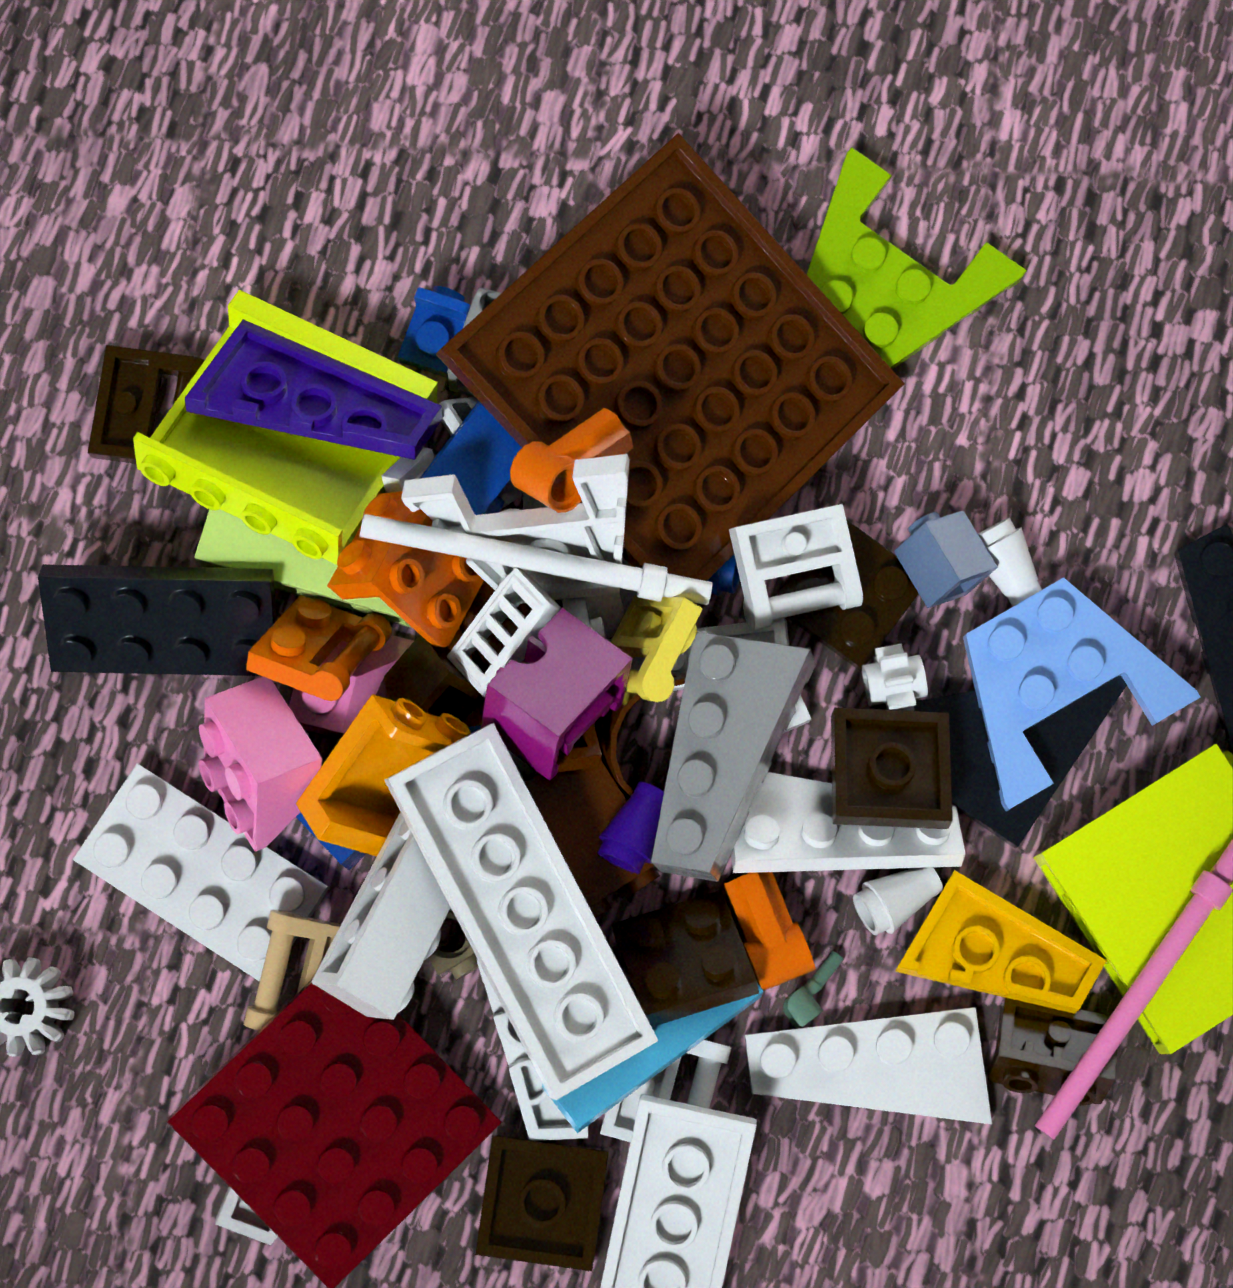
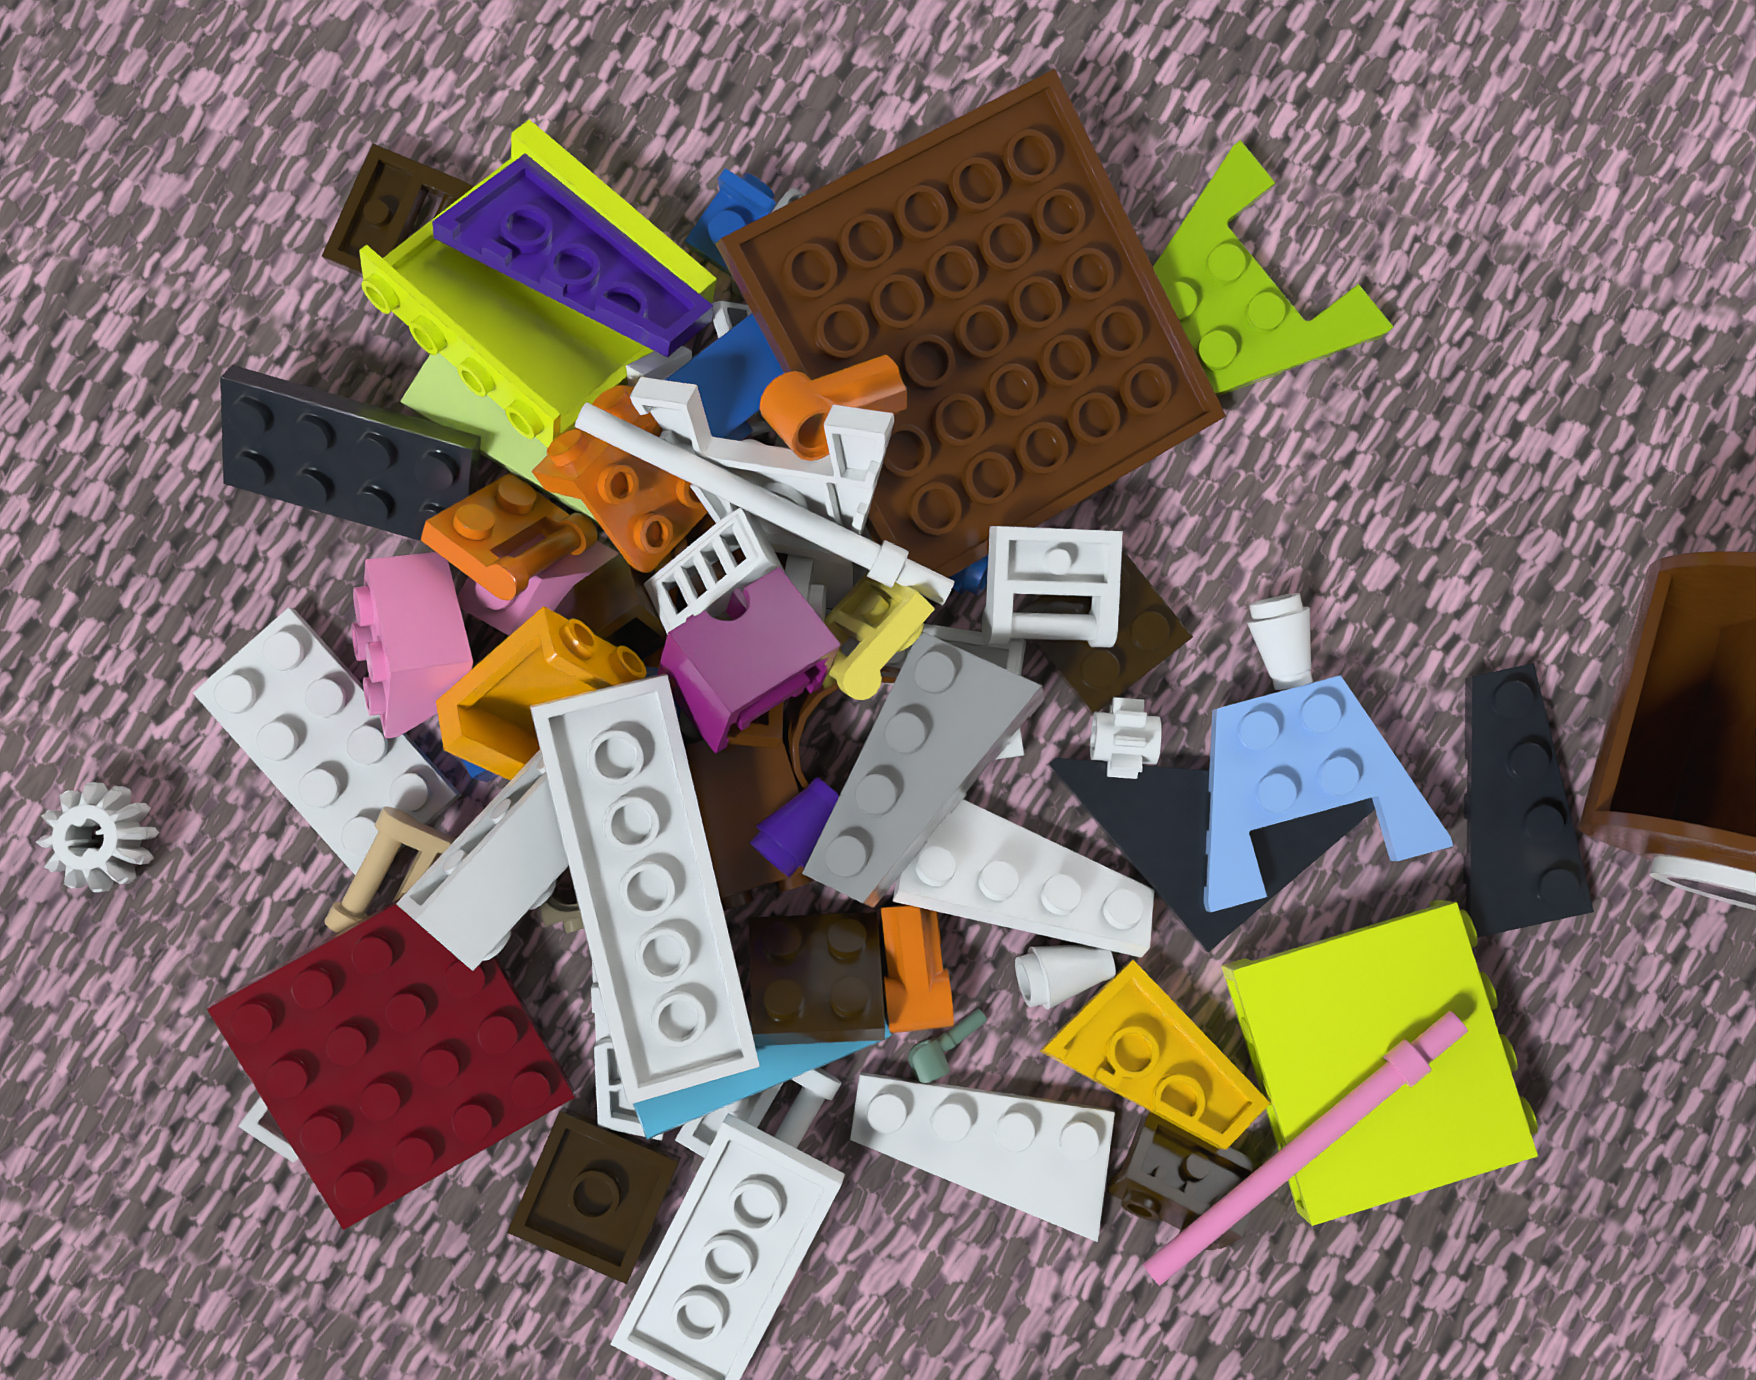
camera: 10 degrees right, 5 degrees up
(891, 768) = (1095, 834): dark brown plate -> none
(944, 557) = (1217, 618): sand blue brick -> none

